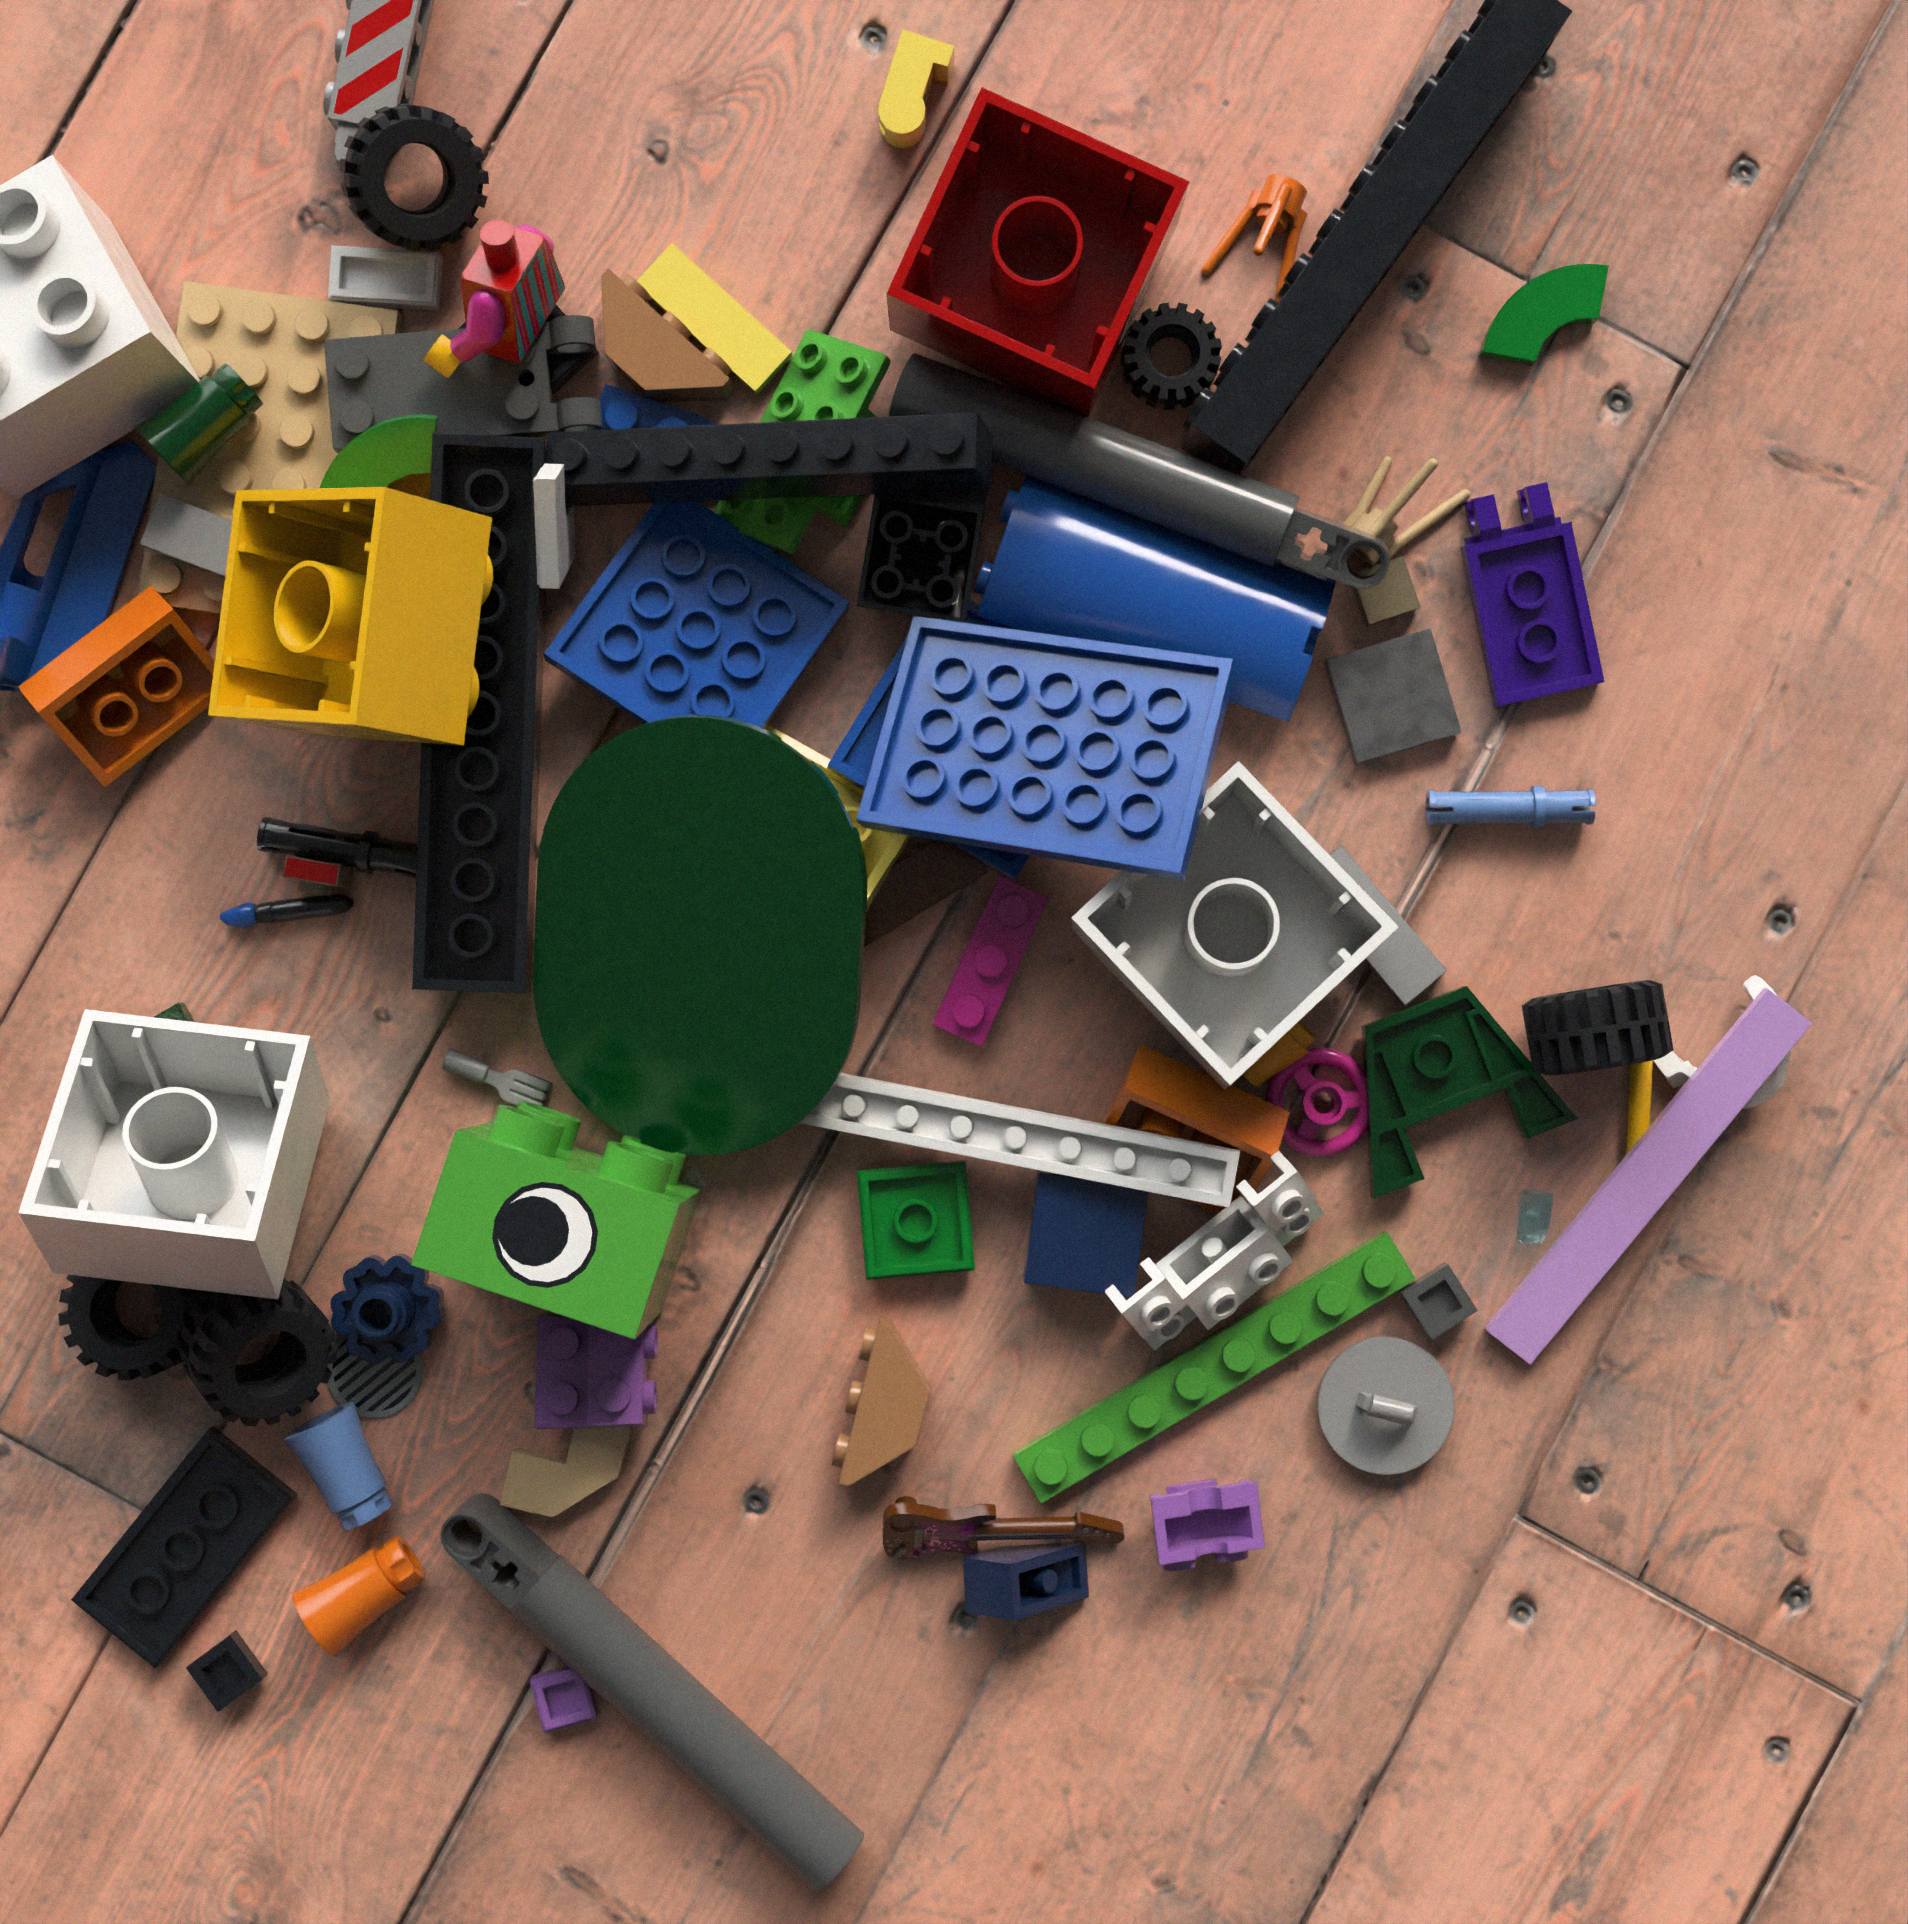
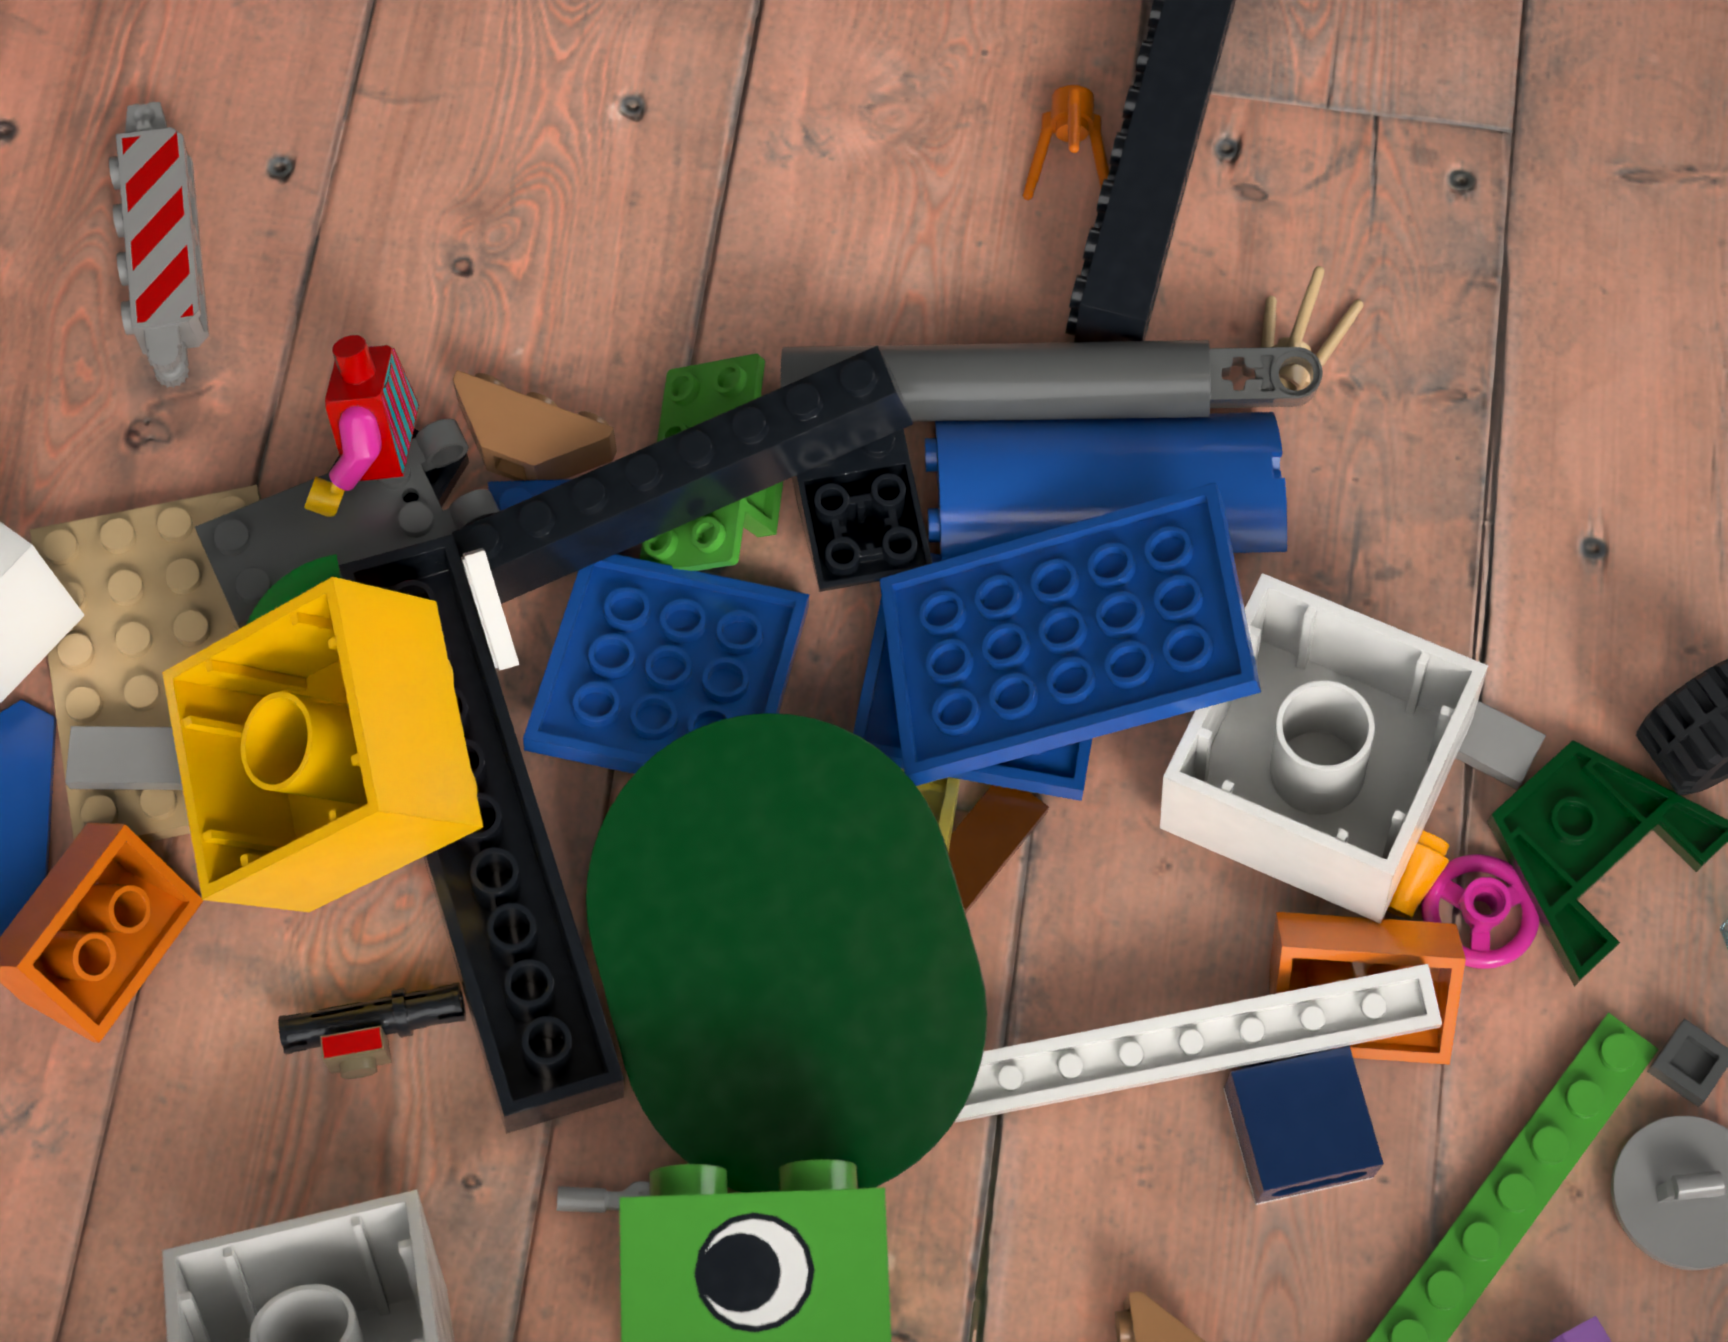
camera: 25 degrees left, 20 degrees down
(200, 422) = (93, 644): dark green plant -> none
(250, 914) = (296, 1124): black piece -> none
(385, 277) = (233, 461): white tile -> none
(460, 188) = (270, 323): black tyre -> none
(715, 318) = (578, 388): light yellow tile -> none
(908, 85) = (685, 142): light yellow leg -> none
(915, 1220) = (1120, 1181): green plate -> none
(990, 961) = (1088, 894): dark pink plate -> none
(1034, 253) = (868, 213): red brick -> none
(1177, 324) = (1027, 247): black tyre -> none
(1222, 1259) = (1457, 1093): white bracket -> none
(1390, 597) = (1325, 415): dark tan tile -> none
(1392, 696) = (1374, 504): flat silver tile -> none
(1511, 807) = (1555, 555): medium blue pin -> none
(1529, 600) = (1462, 372): dark purple tile -> none
(1542, 307) = (1355, 123): green tile -> none

